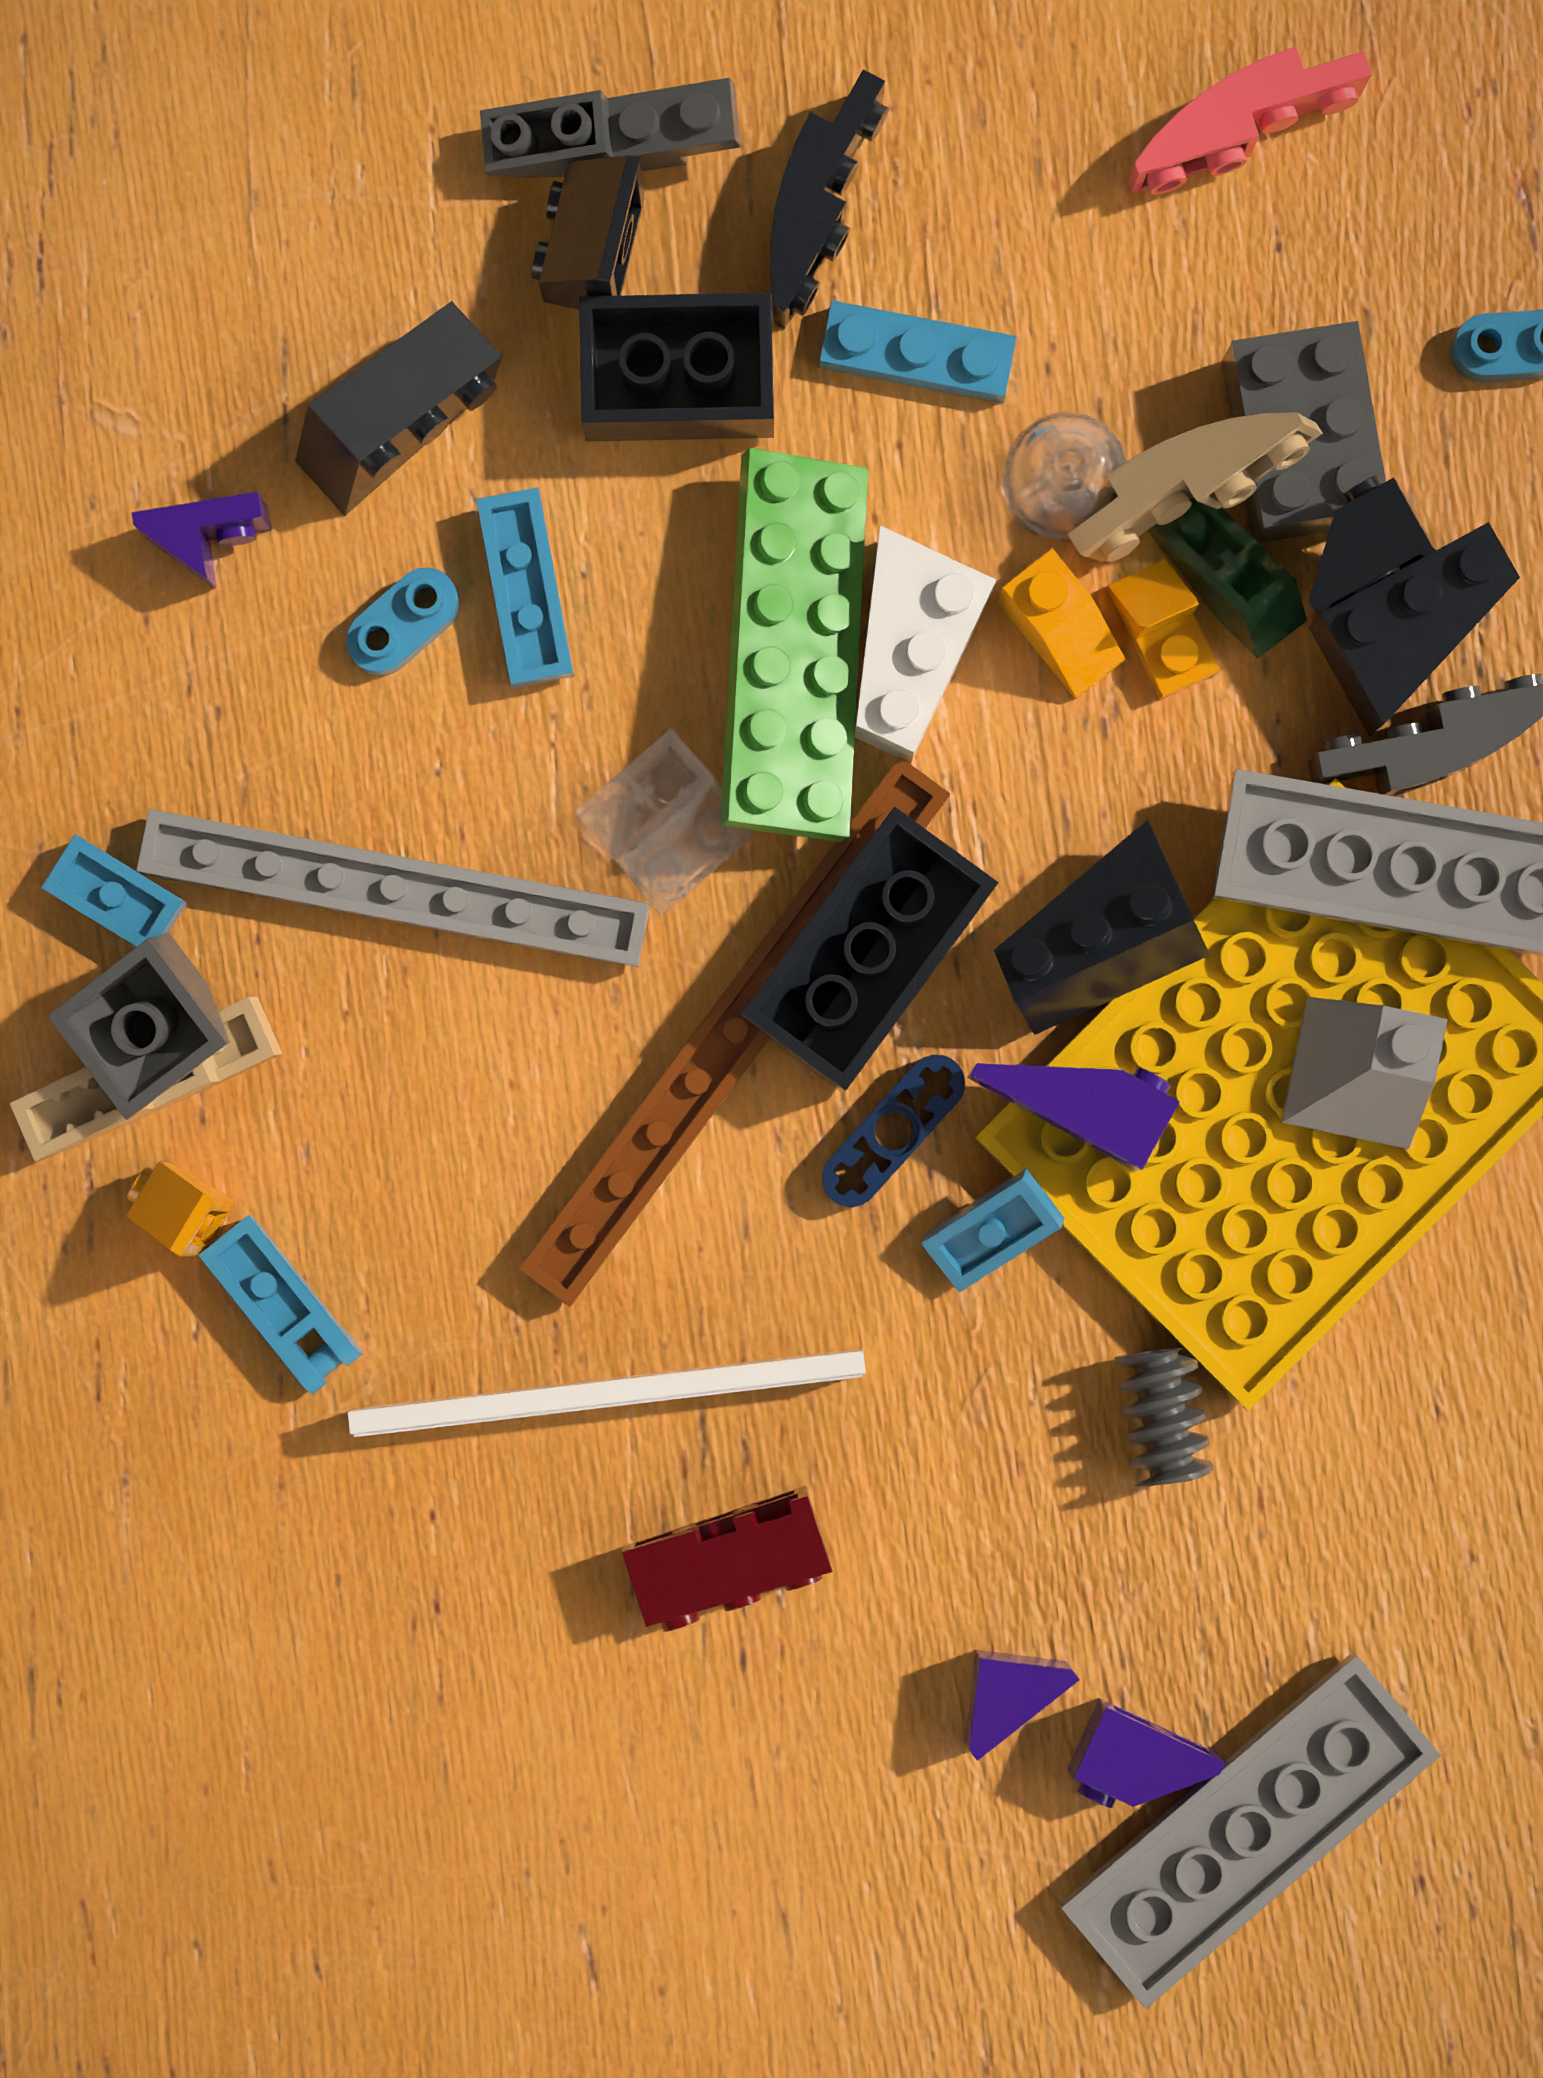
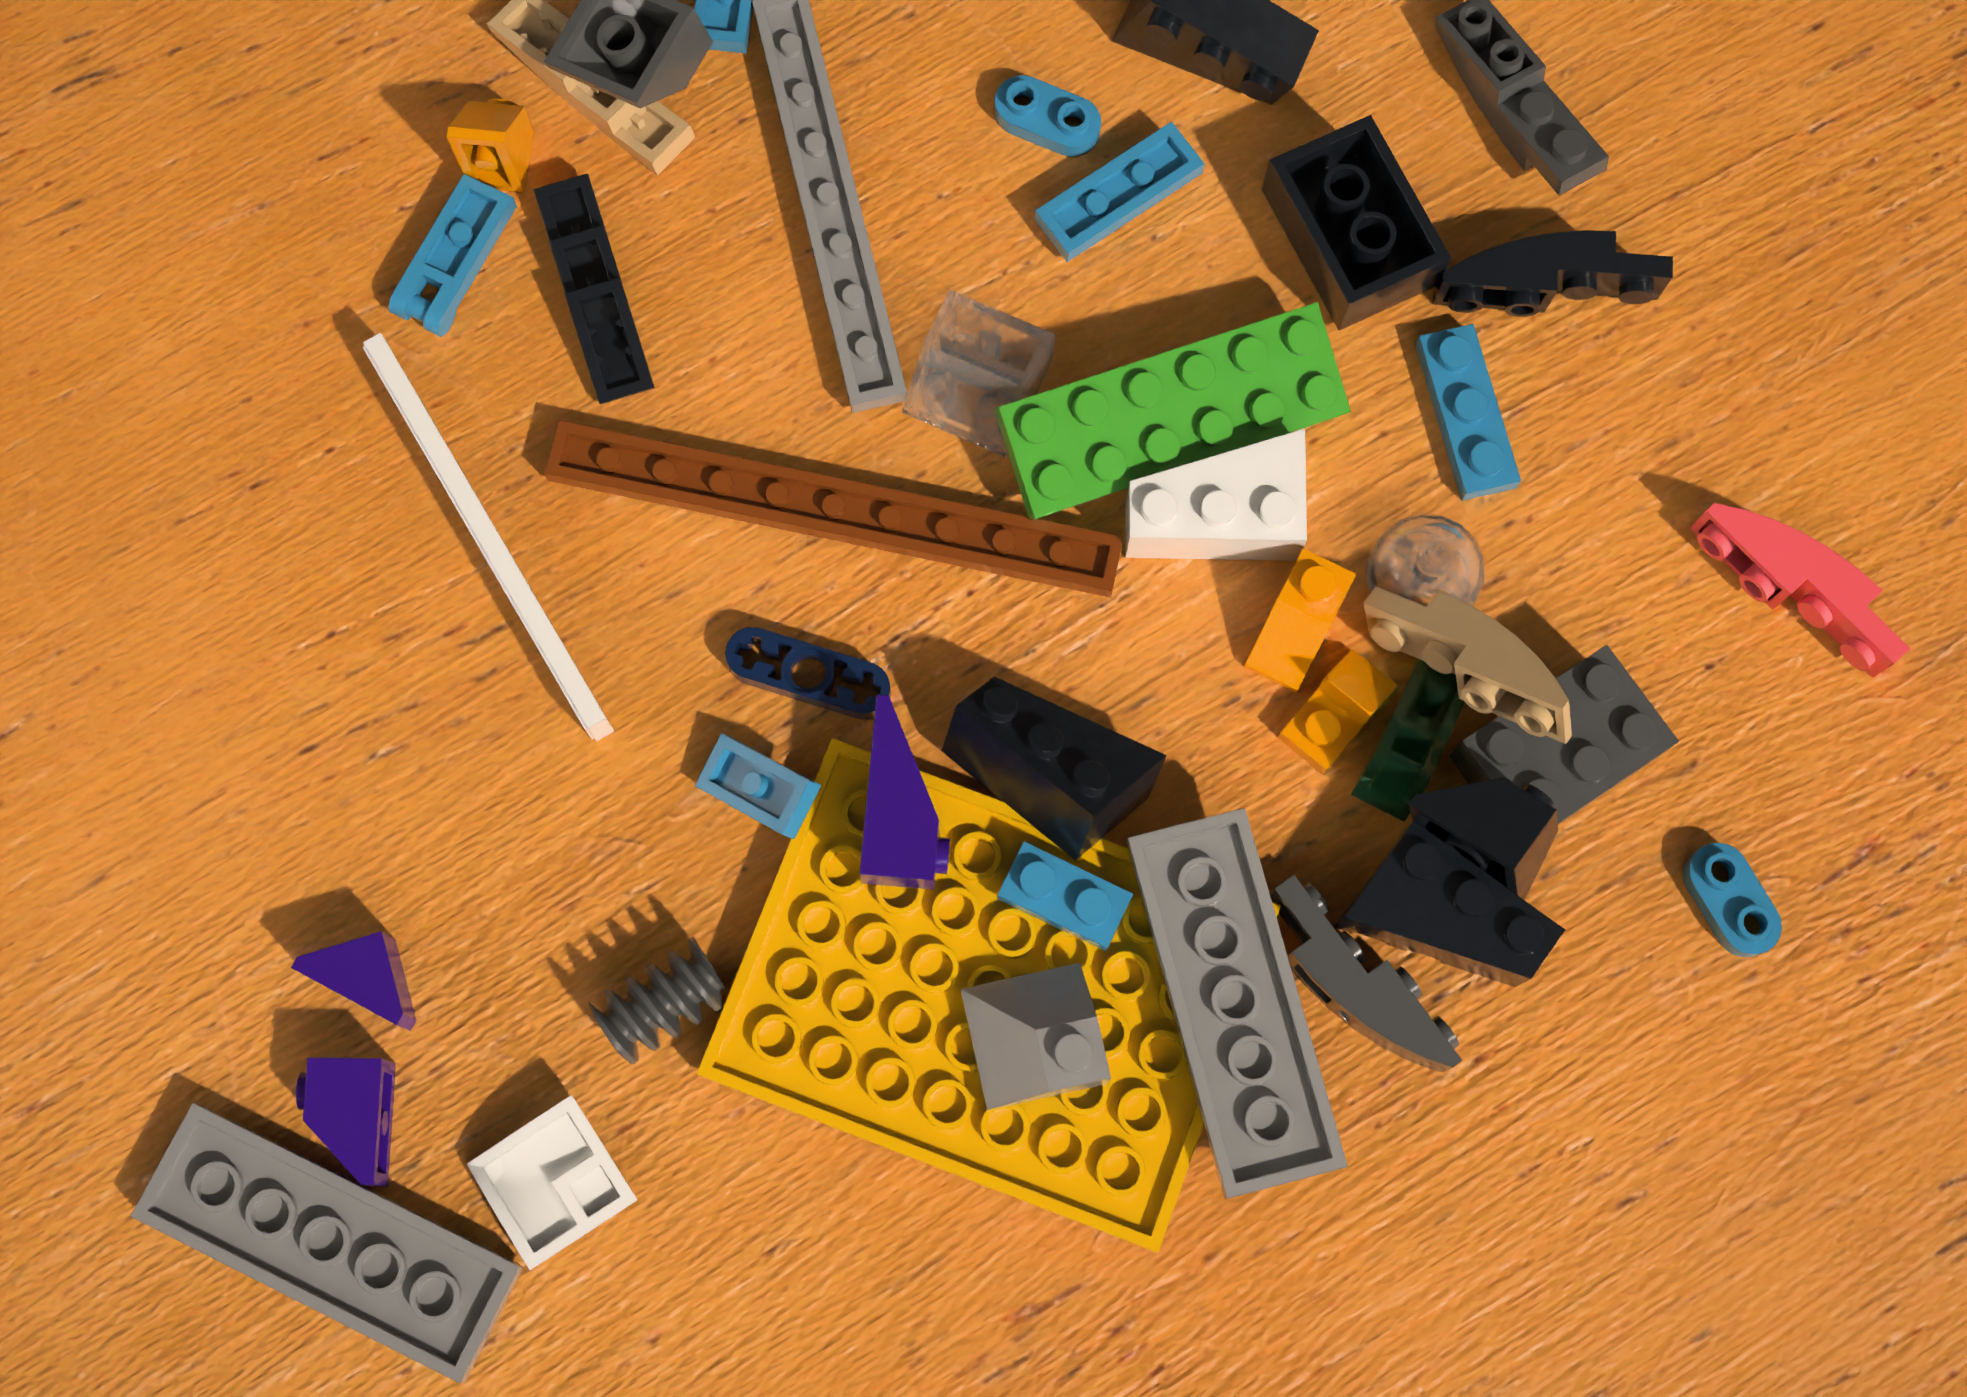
camera: 65 degrees right, 10 degrees down
(385, 1173) = (594, 289): none -> black slope
(592, 230) = (1434, 115): slope -> none
(727, 1559) = (385, 692): dark red wedge -> none
(869, 949) = (946, 578): black slope -> none
(1238, 981) = (1064, 896): none -> dark azure plate
(1288, 1593) = (551, 1182): none -> white plate

